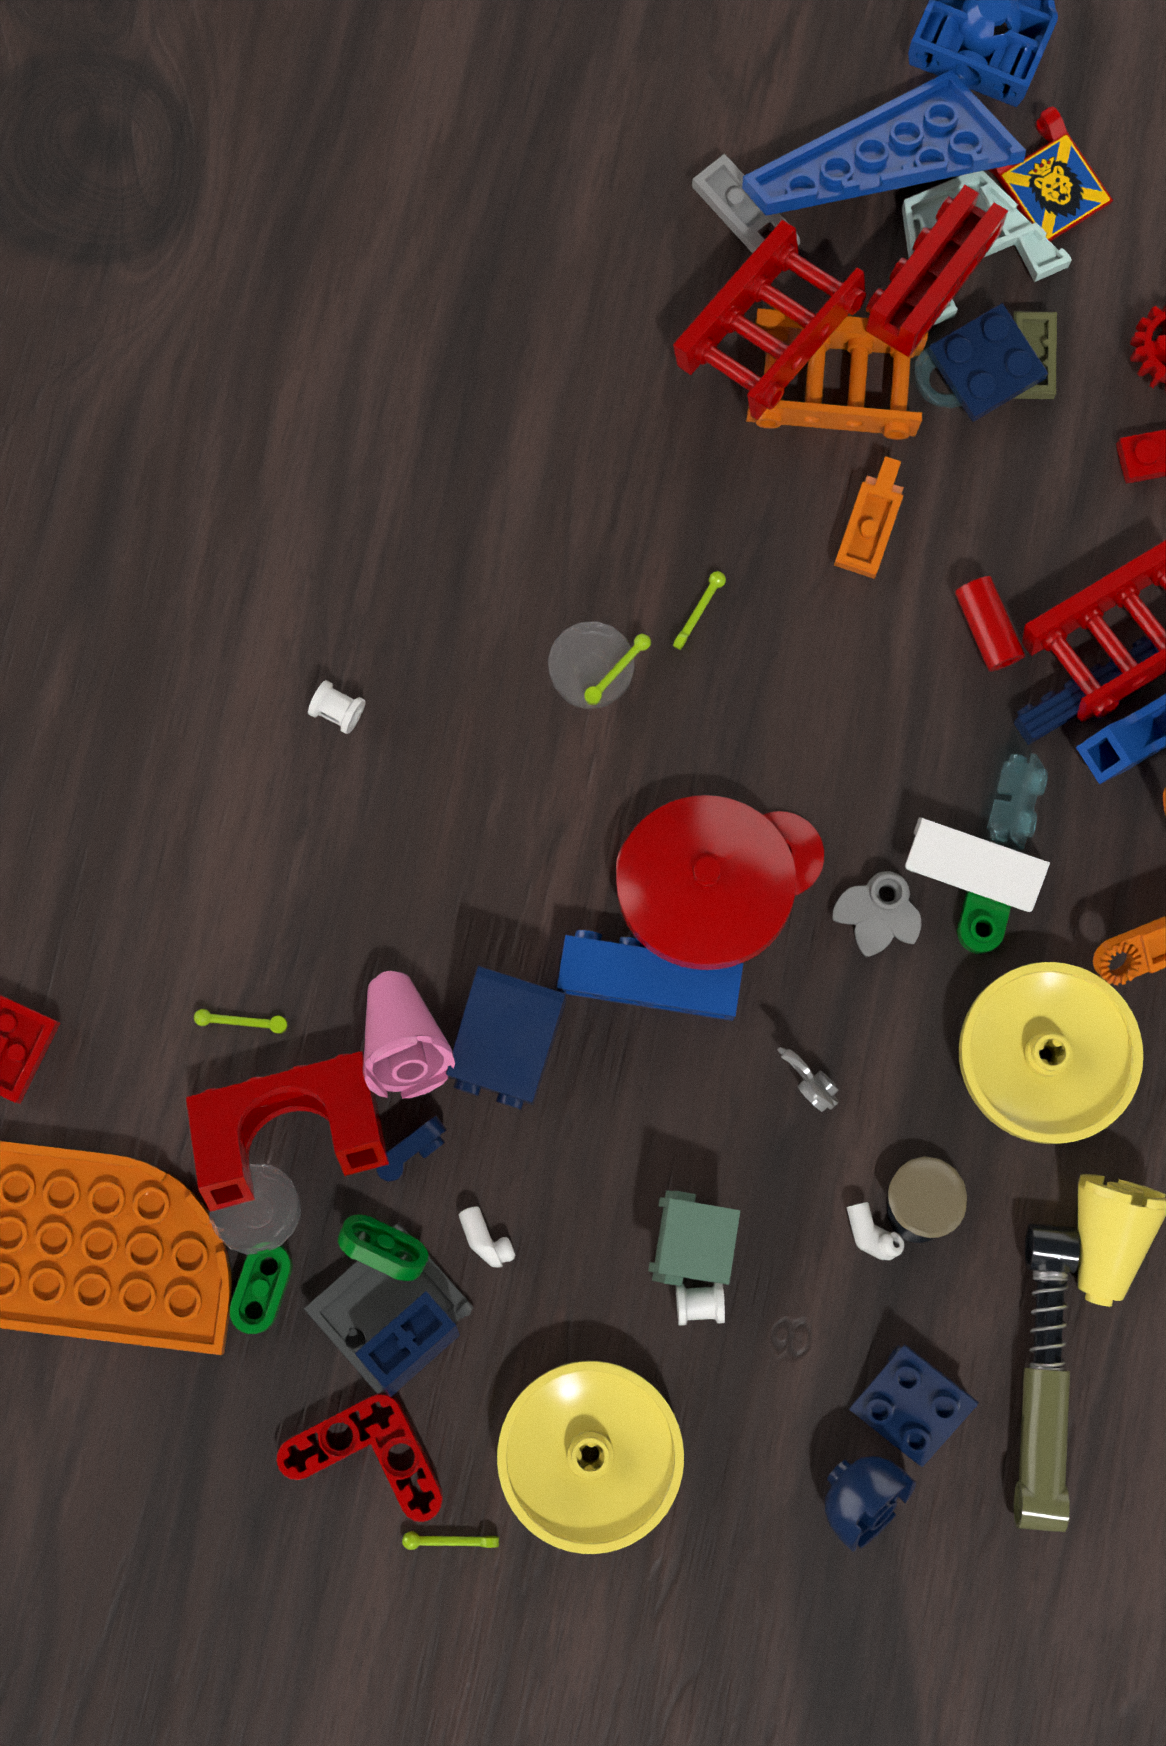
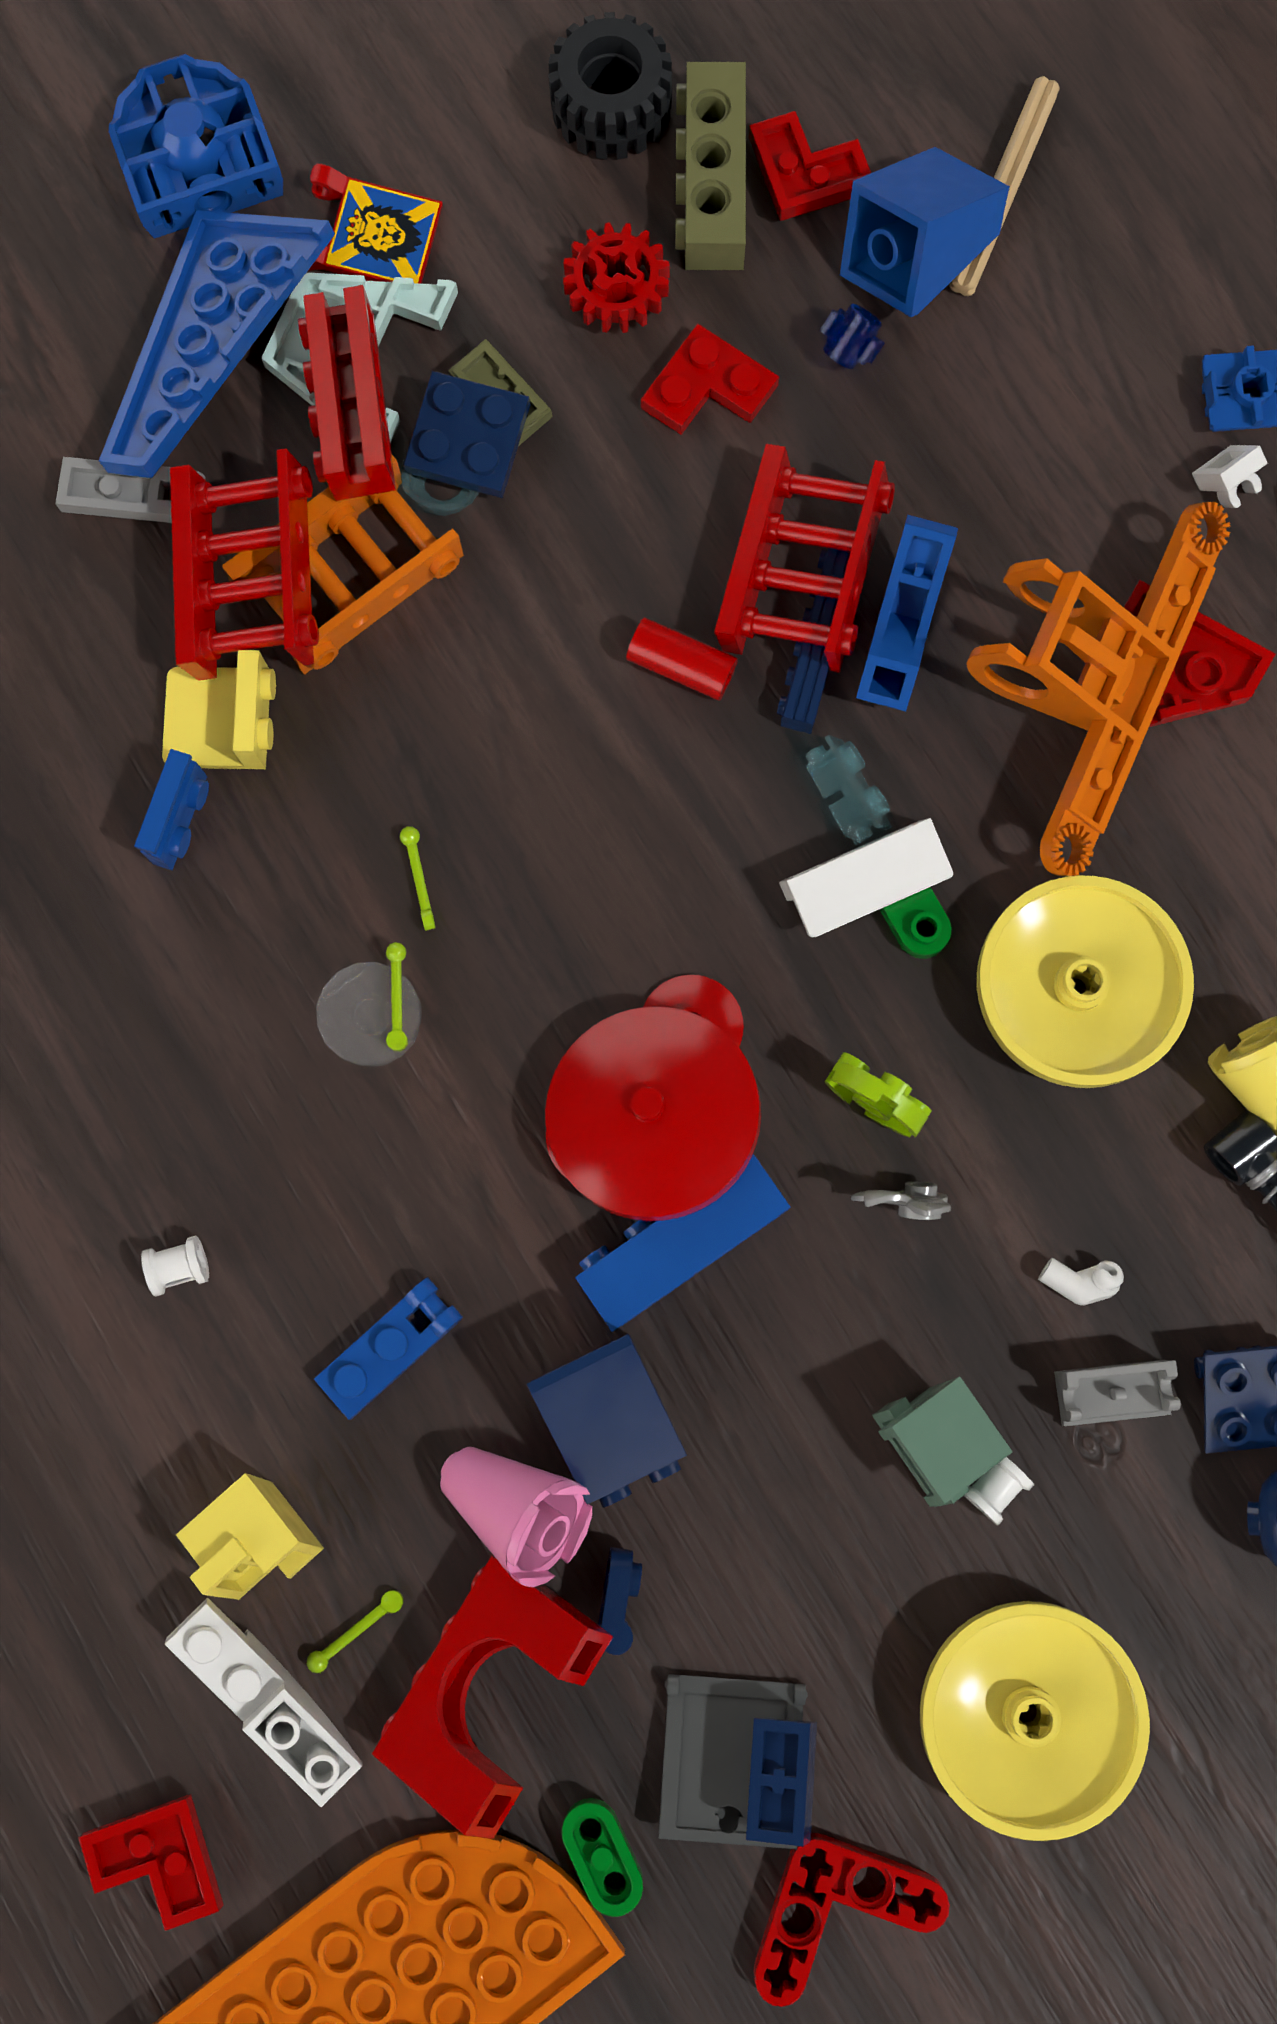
camera: 40 degrees left, 0 degrees up
(153, 1010) = (266, 1699): none -> white slope
(230, 904) = (245, 1538): none -> light yellow plate
(264, 1221) = (550, 1792): clear tile -> none
(382, 1247) = (677, 1714): green plate -> none
(412, 1540) = (949, 1946): lime hinge -> none
(413, 875) = (386, 1350): none -> blue plate
(480, 1240) = (758, 1620): white arm -> none
(598, 426) = (176, 797): none -> blue plate
(669, 402) = (222, 718): none -> light yellow bracket
(828, 1318) = (1116, 1392): none -> light grey hinge
(853, 1001) = (884, 1099): none -> lime plate
(871, 521) = (496, 663): orange hinge -> none
(878, 920) = (828, 1004): light grey plate -> none
(926, 1200) = (1100, 1208): dark tan piece -> none

